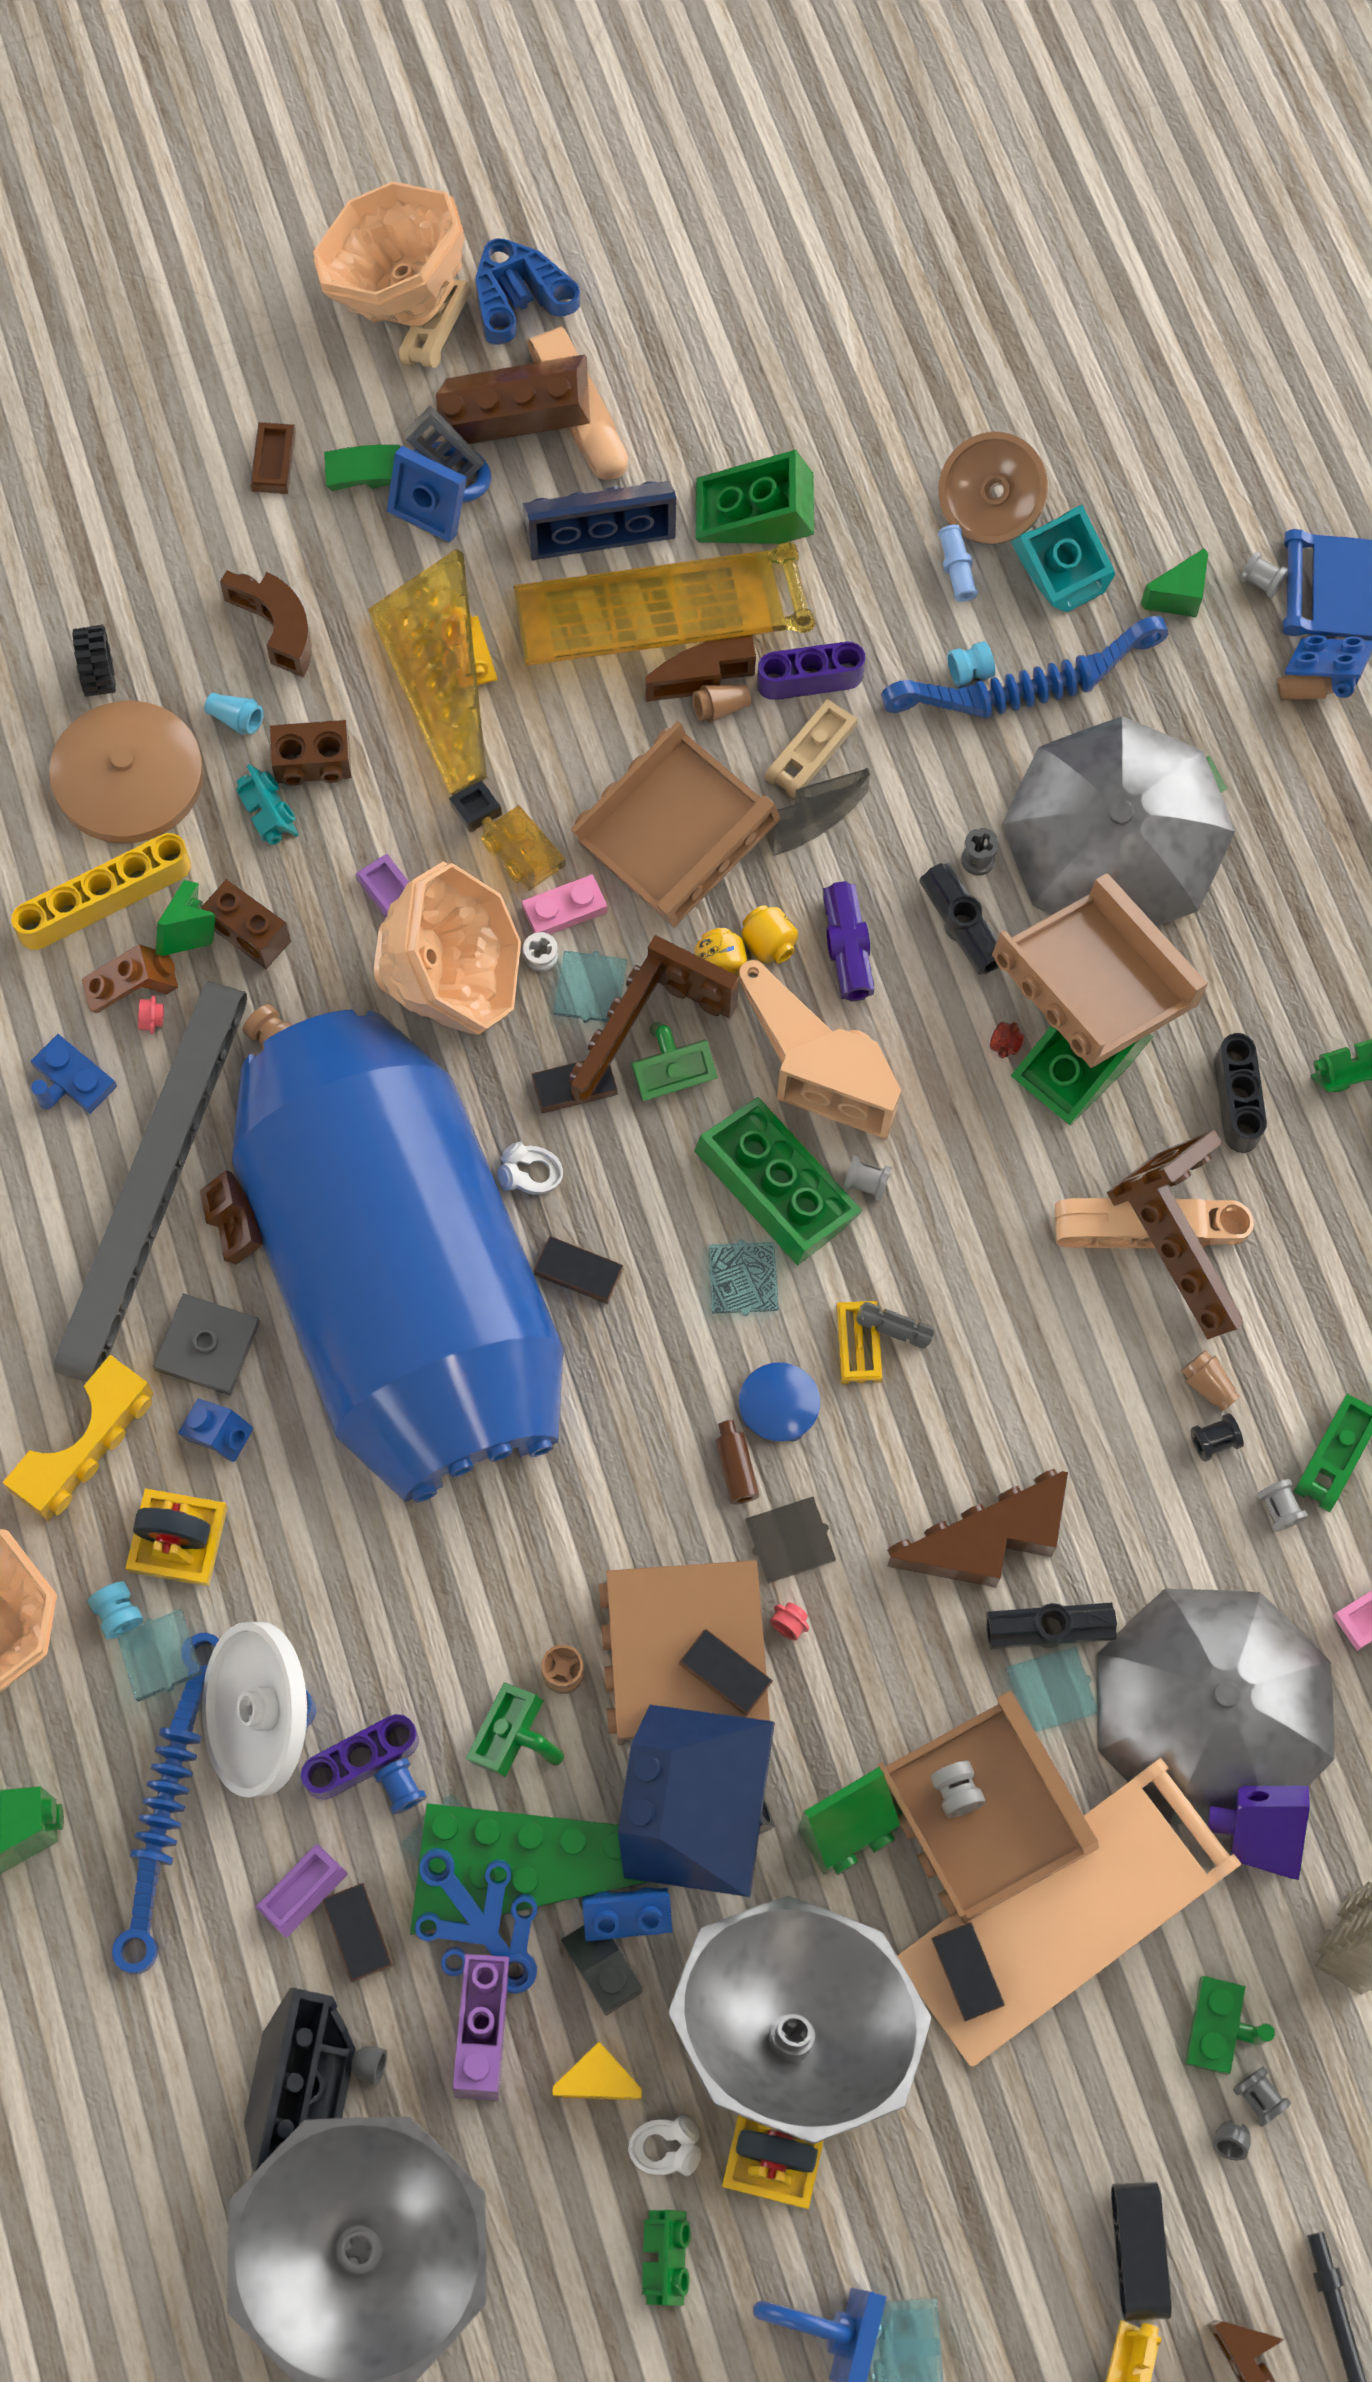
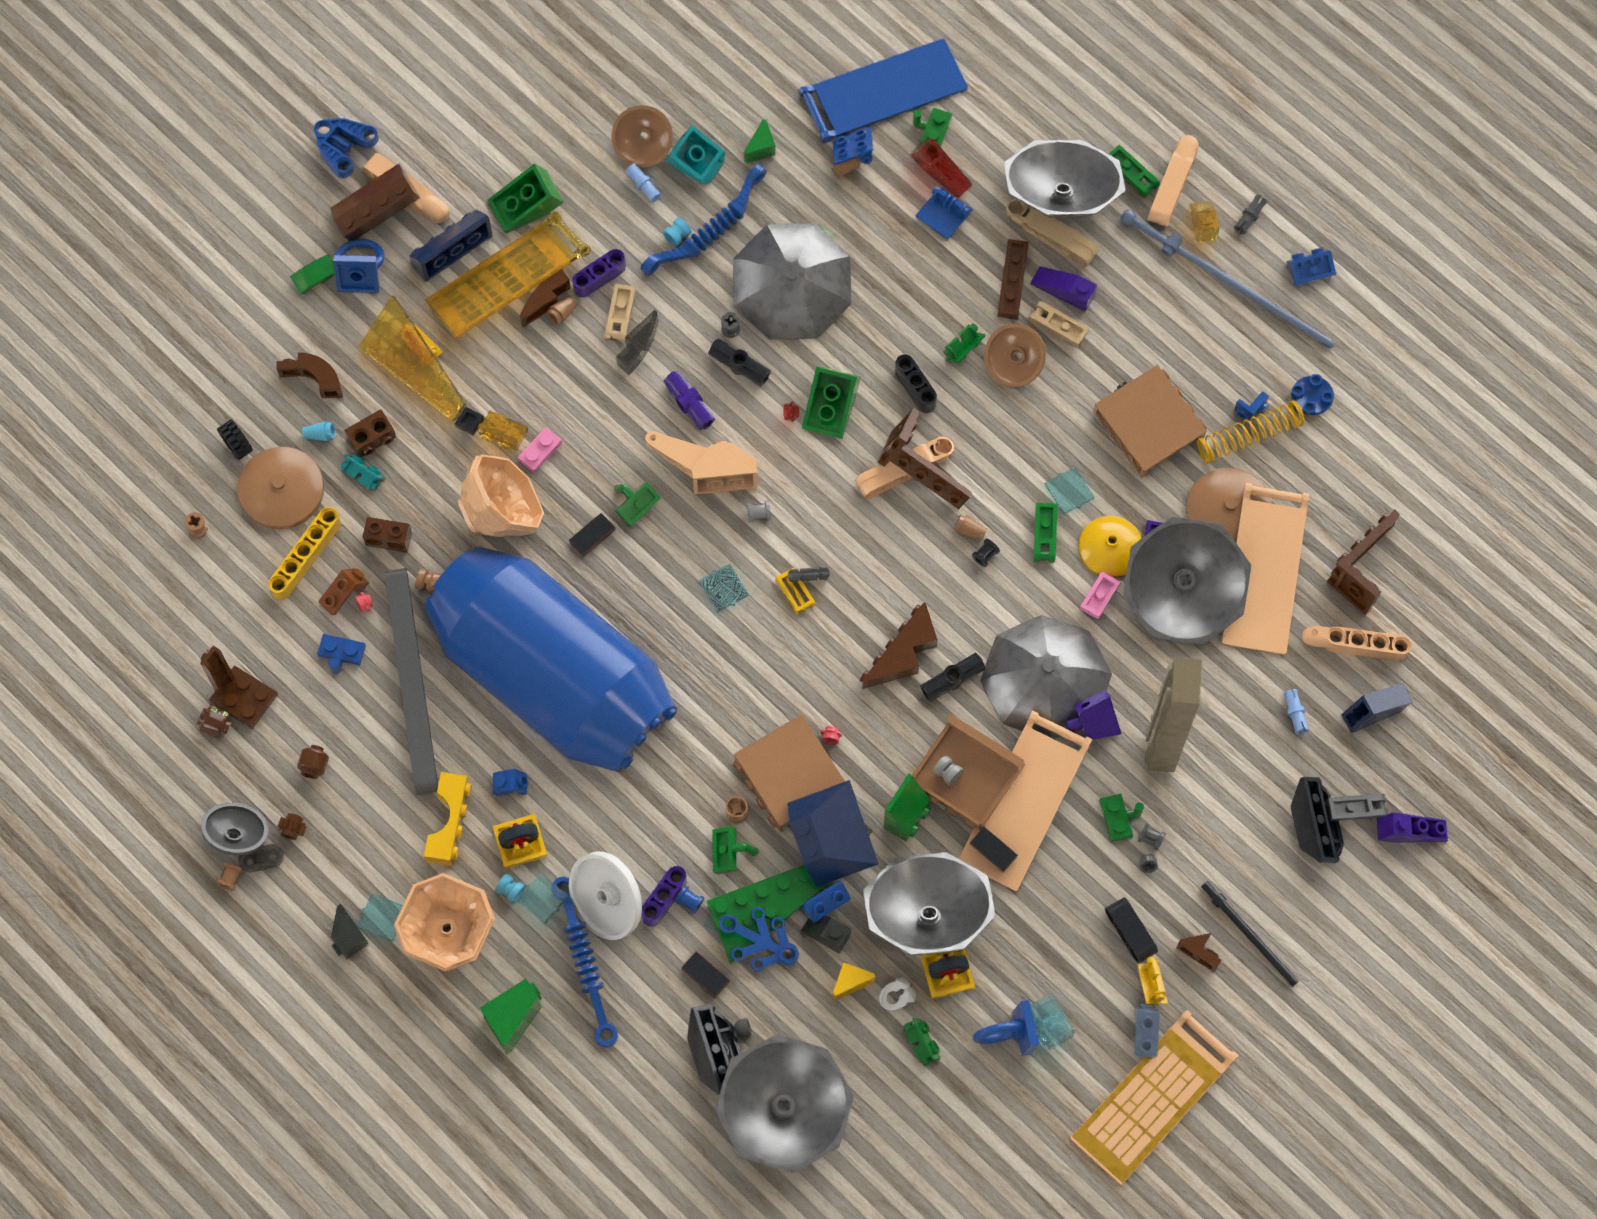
camera: 25 degrees left, 0 degrees up
(184, 922) = (358, 548): green slope -> none
(206, 1344) = (482, 746): dark grey plate -> none
(230, 1211) = (459, 677): reddish brown slope -> none
(273, 458) = (263, 291): reddish brown tile -> none
(301, 1890) = (669, 968): medium lavender tile -> none
(382, 882) = (446, 483): medium lavender tile -> none
(392, 254) = (271, 155): light nougat rock -> none
(429, 418) = (340, 238): dark grey slope -> none
(435, 331) = (308, 180): tan plate -> none
(481, 2028) = (786, 985): medium lavender slope -> none
(511, 1178) = (587, 594): white piece -> none
(535, 942) = (545, 481): white bush -> none
(578, 1270) = (643, 622): black tile -> none
(589, 985) = (573, 483): clear light blue piece -> none
(674, 824) = (574, 383): medium nougat panel -> none
(682, 976) = (617, 456): reddish brown bracket -> none
(722, 949) = (631, 438): yellow head -> none
(725, 1672) = (814, 771): black tile -> none
(736, 1464) = (767, 676): reddish brown cylinder -> none
(769, 934) = (649, 415): yellow head -> none
(777, 1180) = (715, 533): green slope -> none
(779, 1402) = (772, 637): blue dish -> none
(790, 1540) = (811, 698): clear smoke piece -> none
(1053, 1689) = (968, 705): clear light blue piece -> none
(1101, 972) = (821, 357): medium nougat panel -> none
(1263, 575) = (798, 117): light grey bush -> none
(1282, 1505) = (1031, 569): light grey bush -> none

